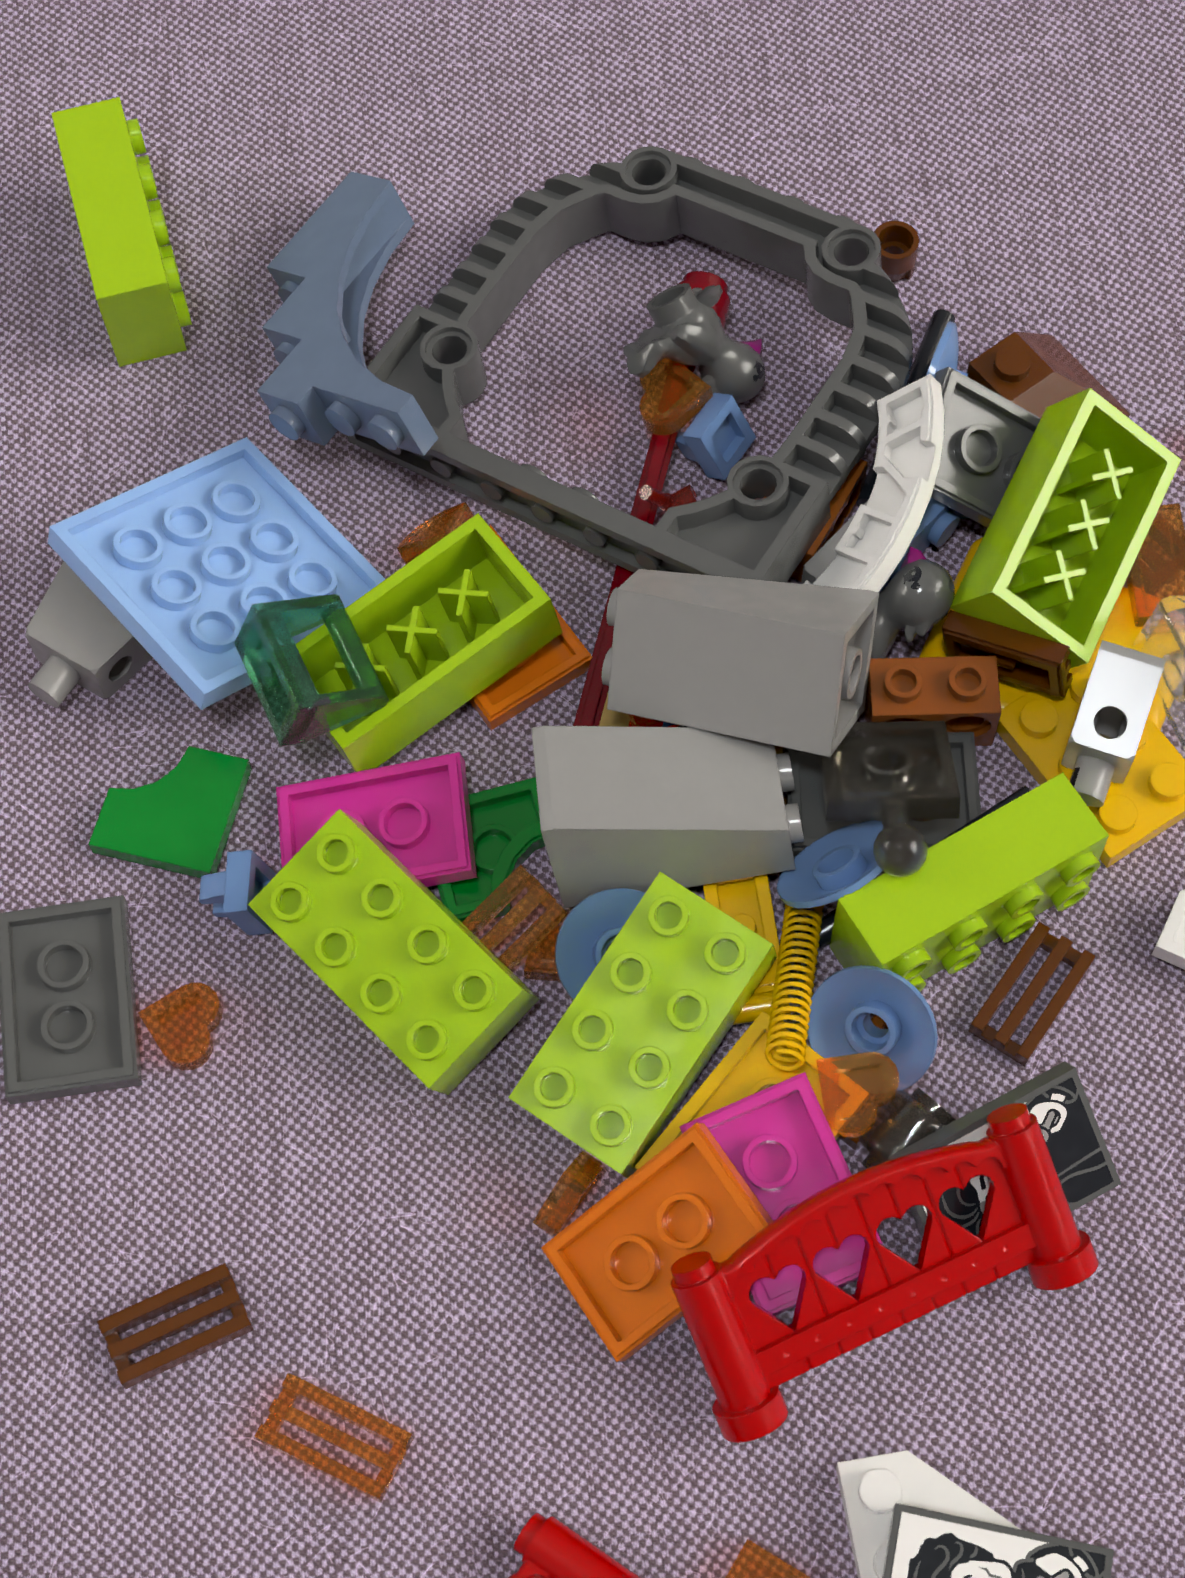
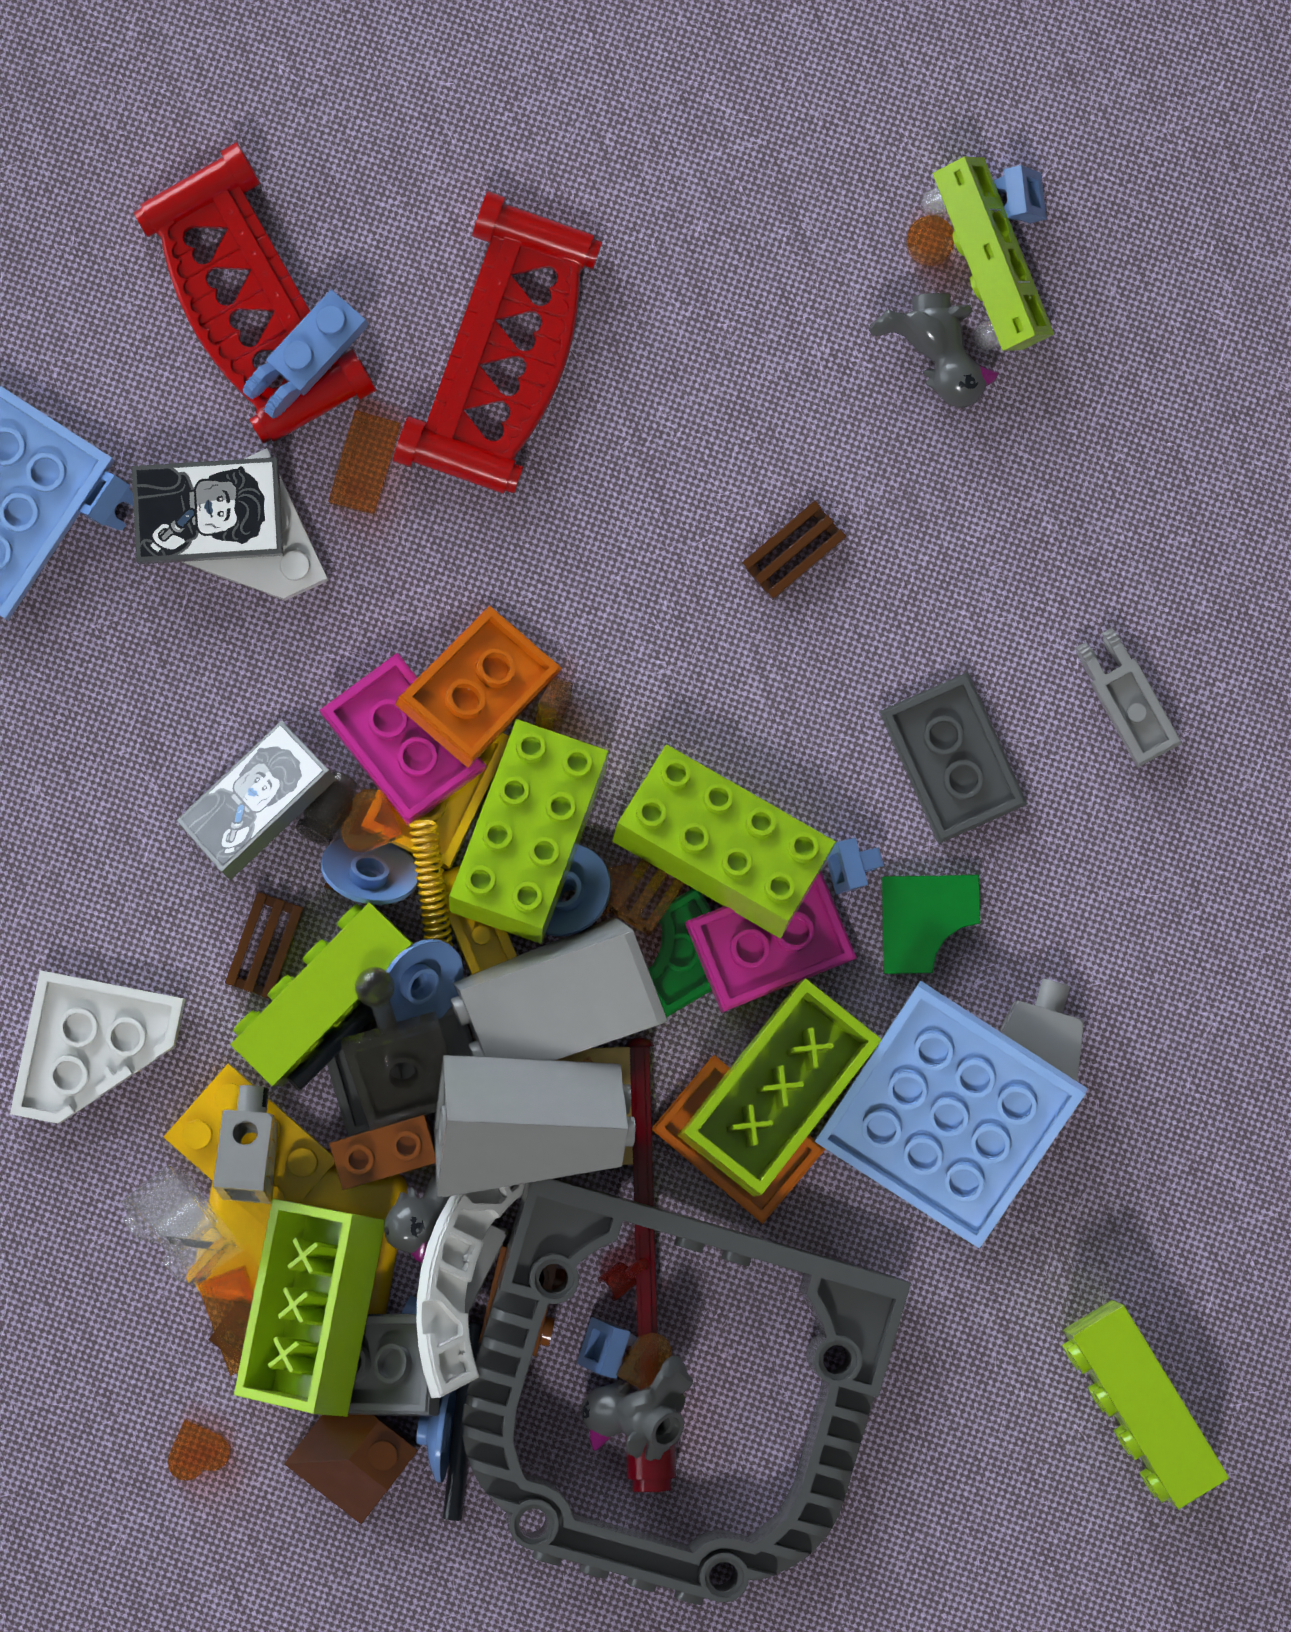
camera: 165 degrees right, 20 degrees up
(184, 1023) = (863, 761): clear orange tile -> none
(282, 678) = (868, 1018): clear green tile -> none
(282, 1410) = (666, 488): clear orange tile -> none
(319, 328) = (958, 1411): sand blue arch -> none
(433, 531) = (800, 1203): clear orange tile -> none
(755, 1352) = (237, 763): red piece -> none
(898, 249) = (501, 1579): reddish brown hose -> none
(1019, 655) = (335, 1199): reddish brown tile -> none

